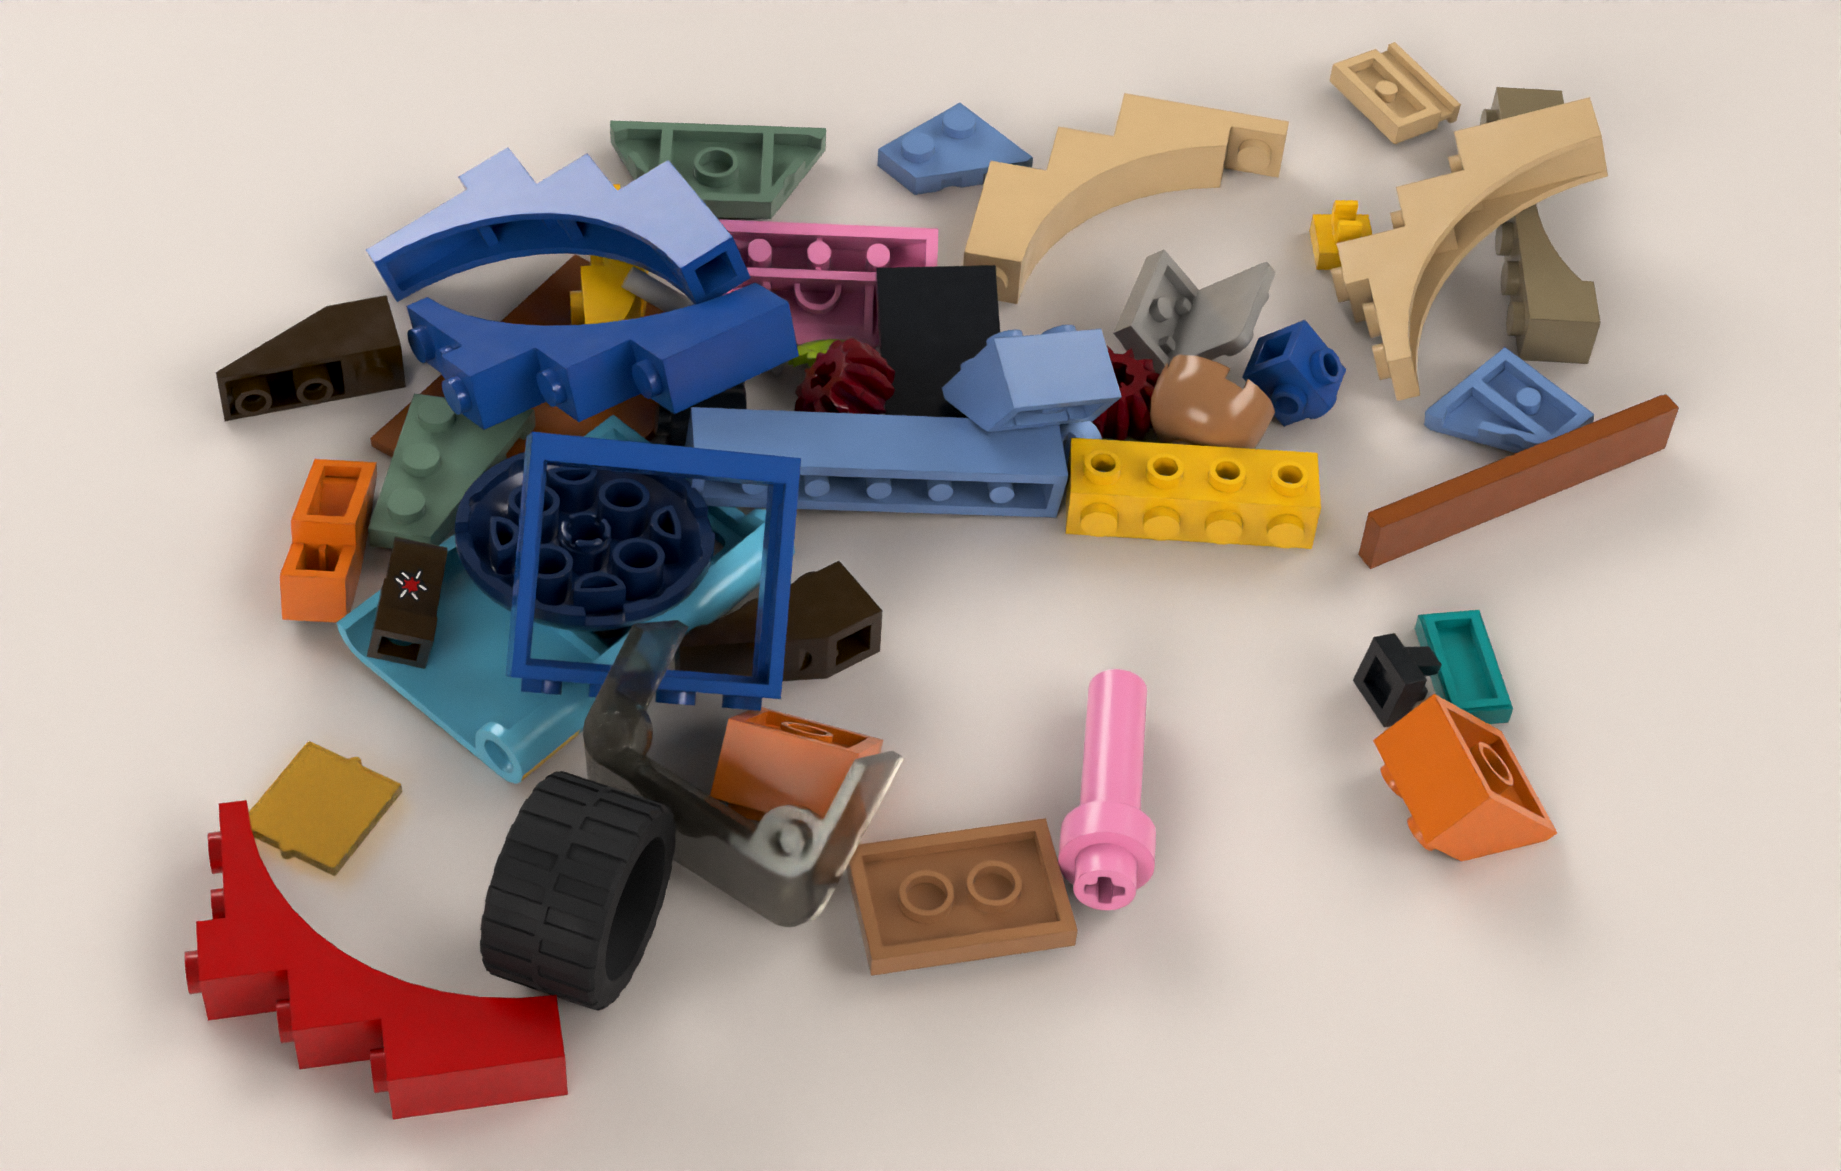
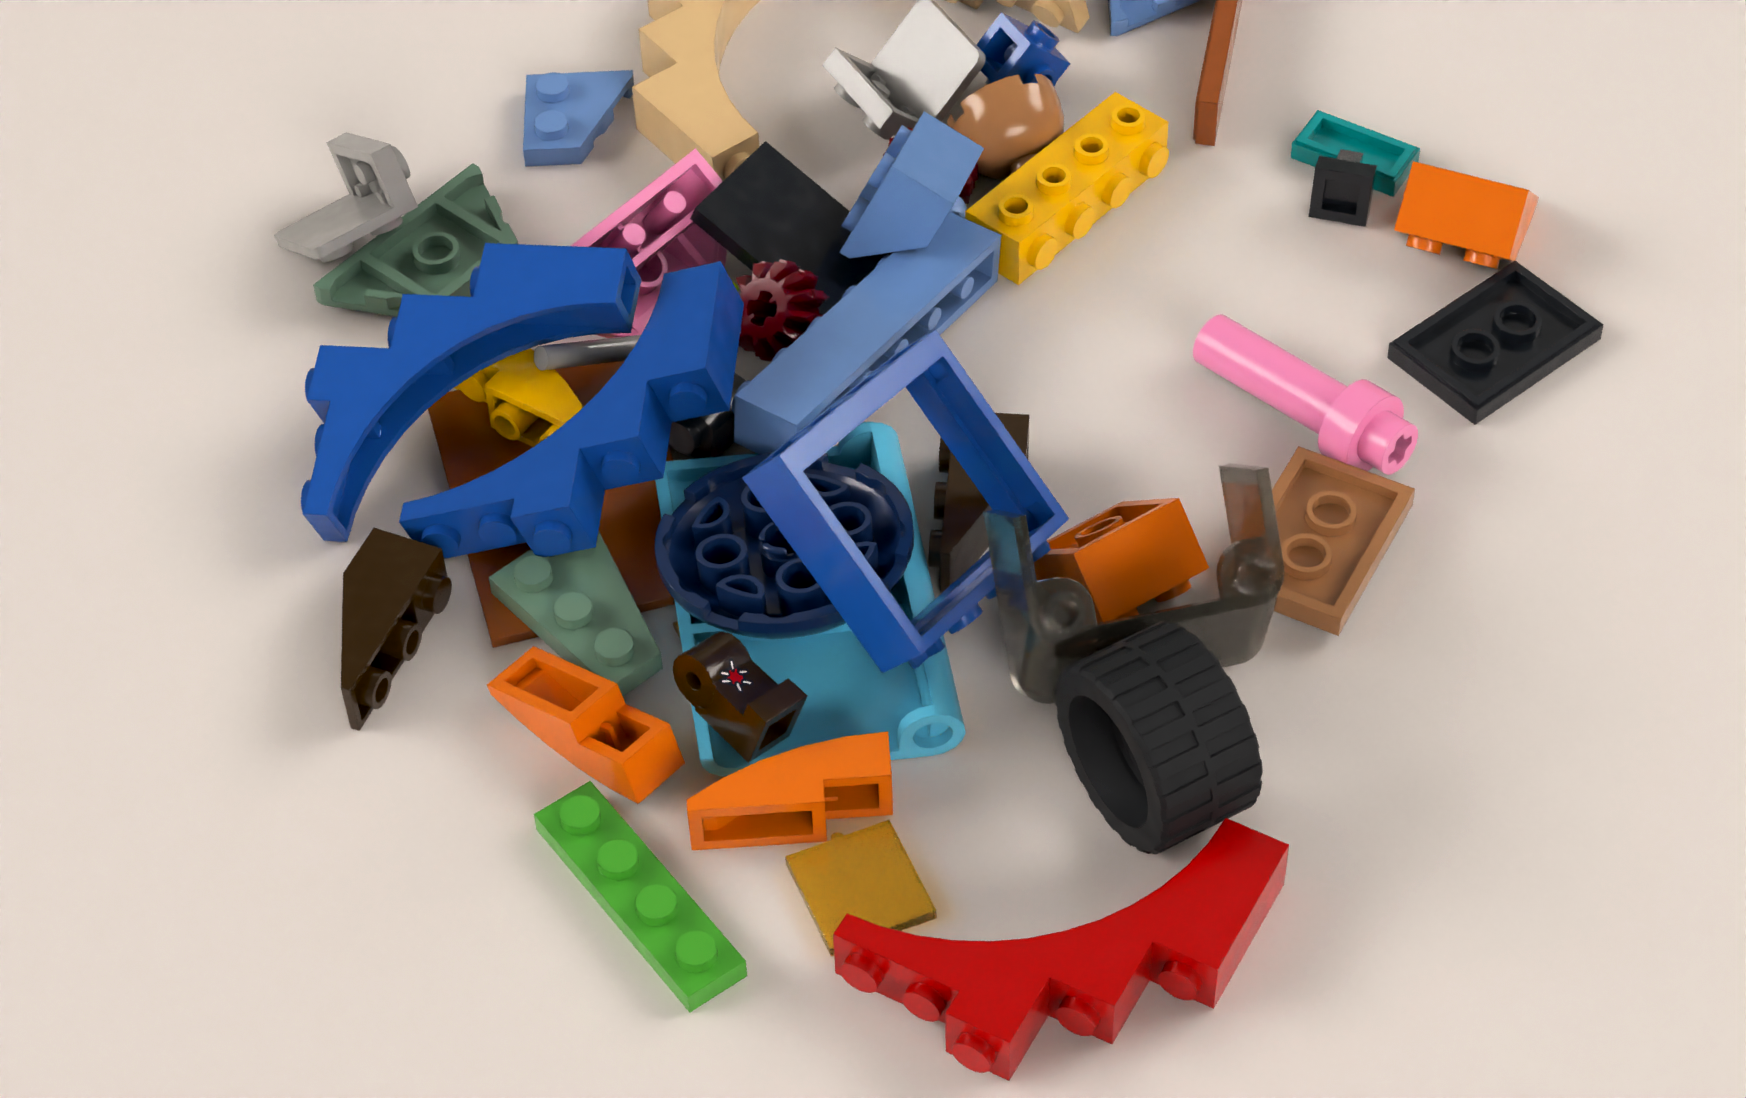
camera: 45 degrees left, 0 degrees up
(195, 676) = (641, 896): none -> bright green plate
(366, 707) = (794, 794): none -> orange slope
(736, 74) = (375, 202): none -> light grey bracket
(1339, 899) = (1494, 342): none -> black tile

